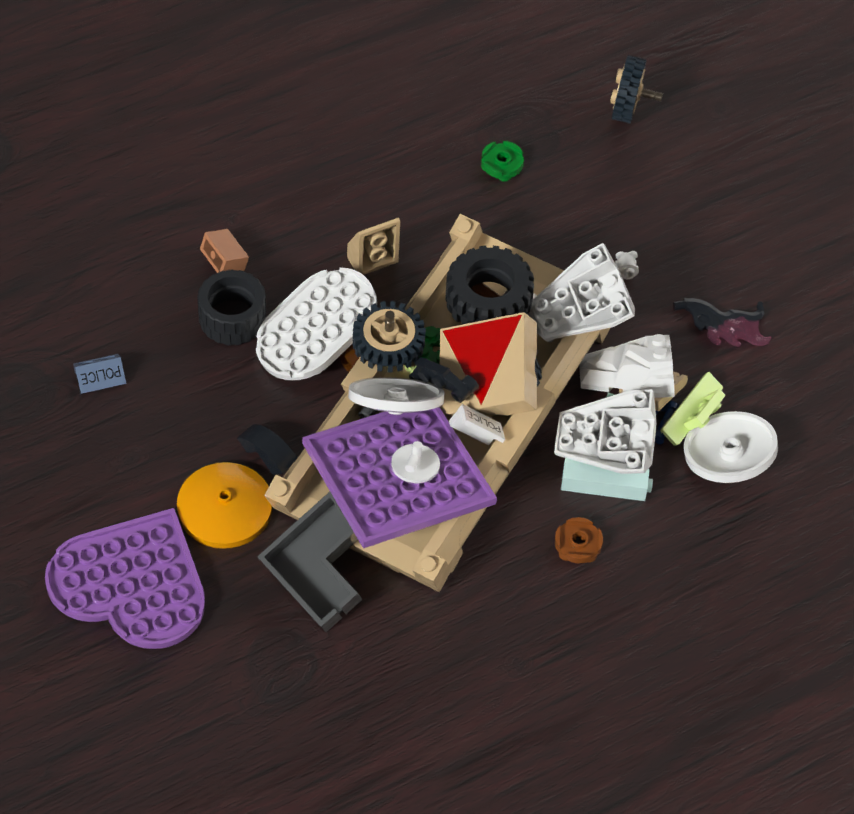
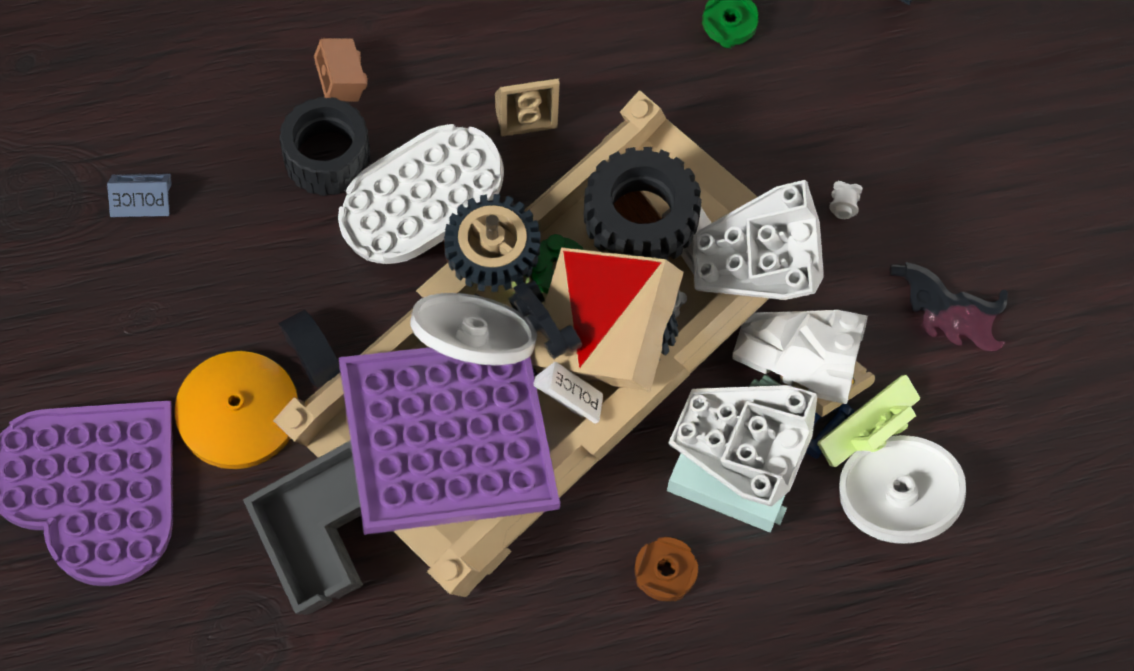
camera: 15 degrees right, 10 degrees up
(415, 463) = (470, 429): white shield -> none

